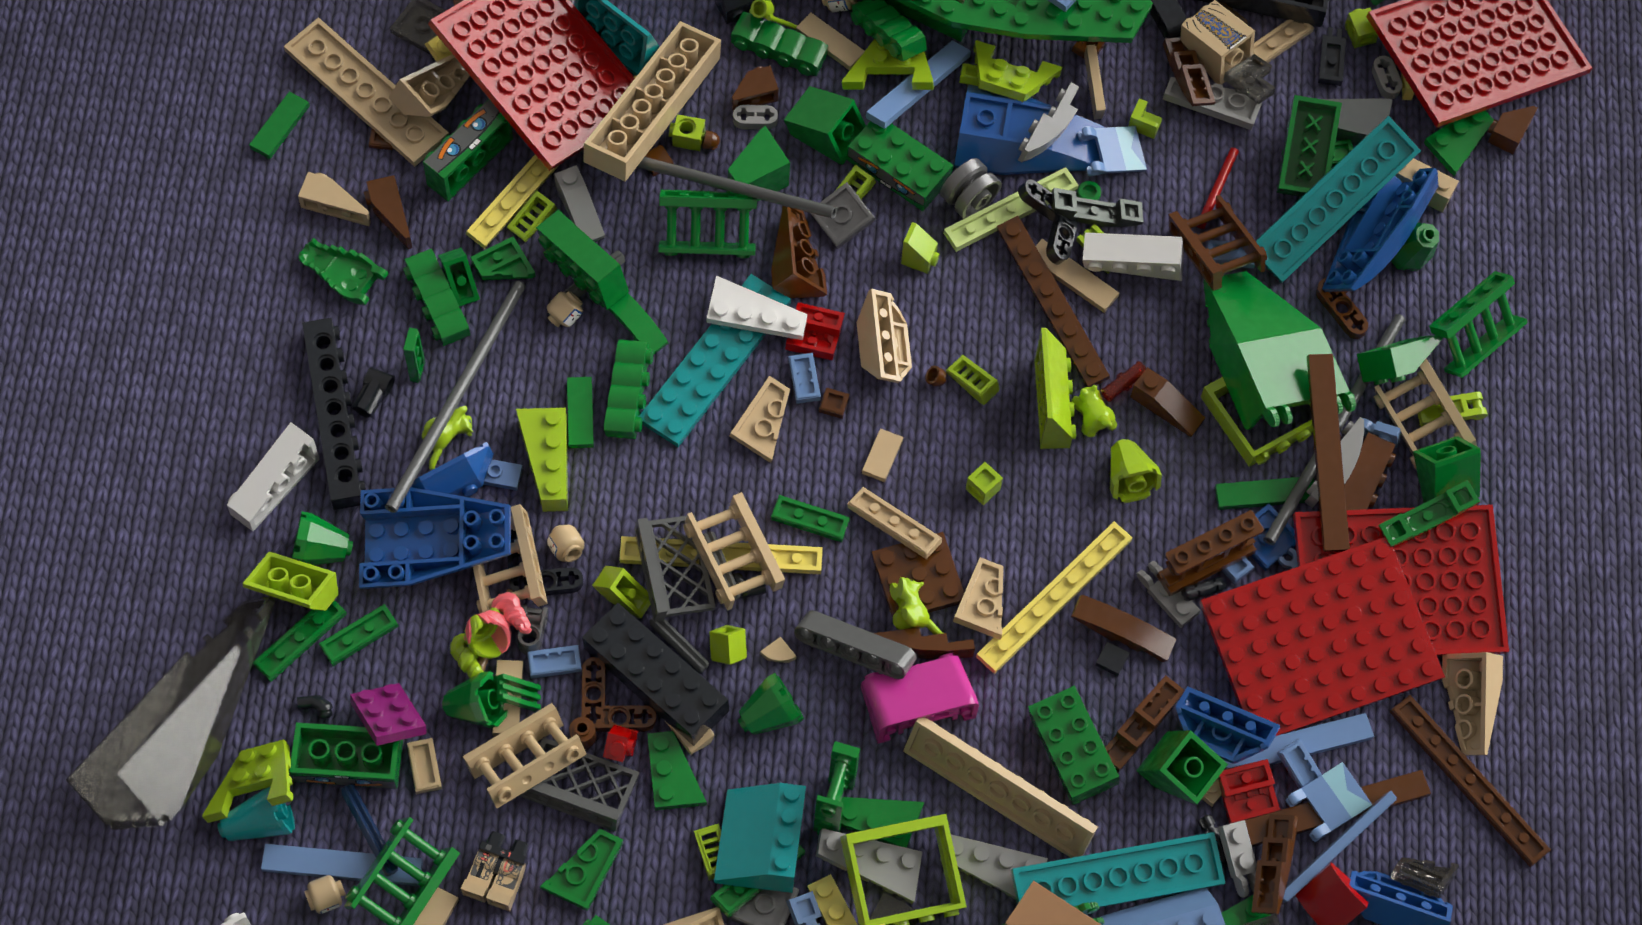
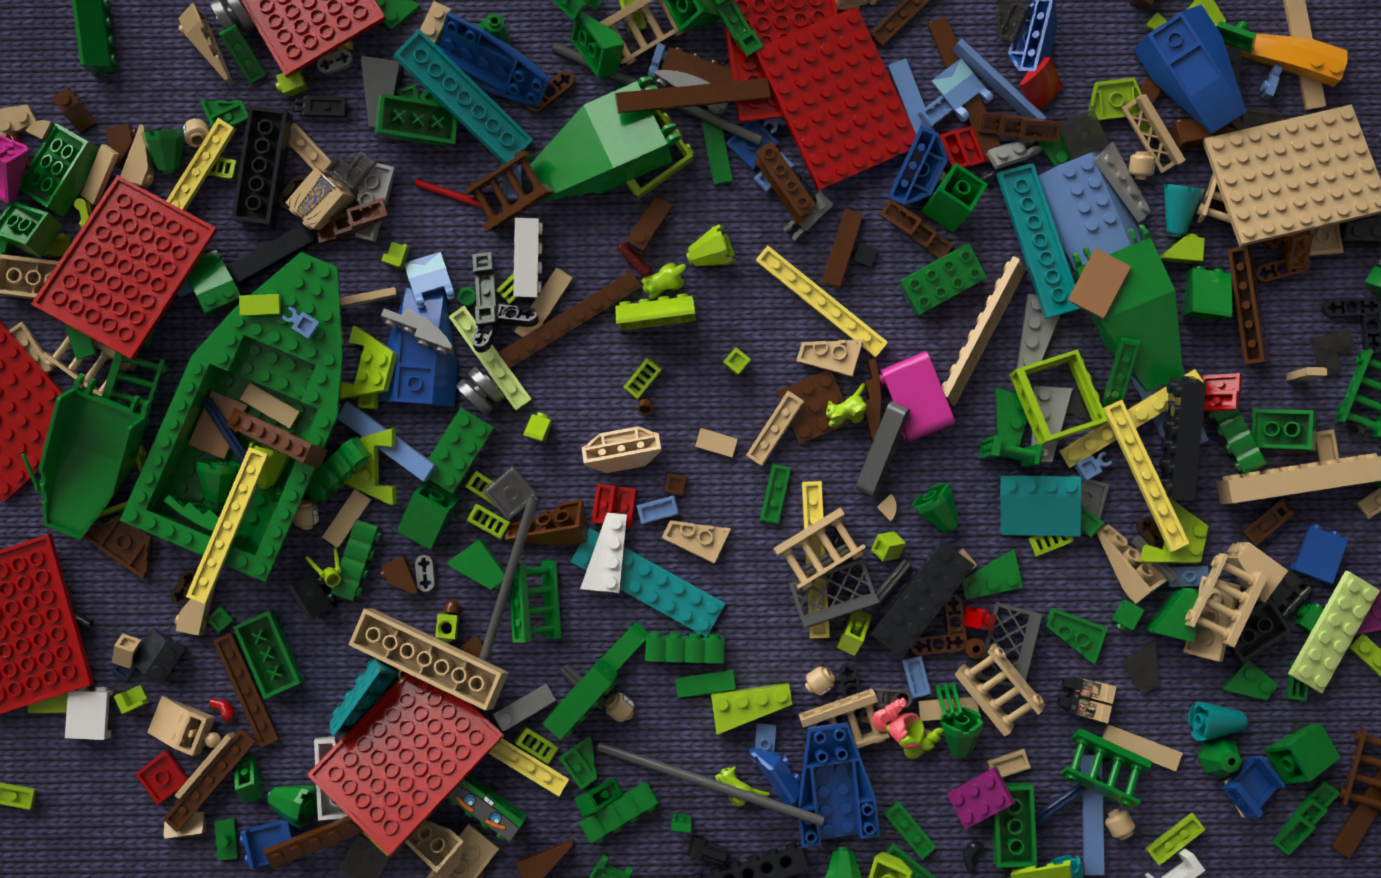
camera: 85 degrees left, 20 degrees up
(814, 171) = (485, 527): none -> lime slope

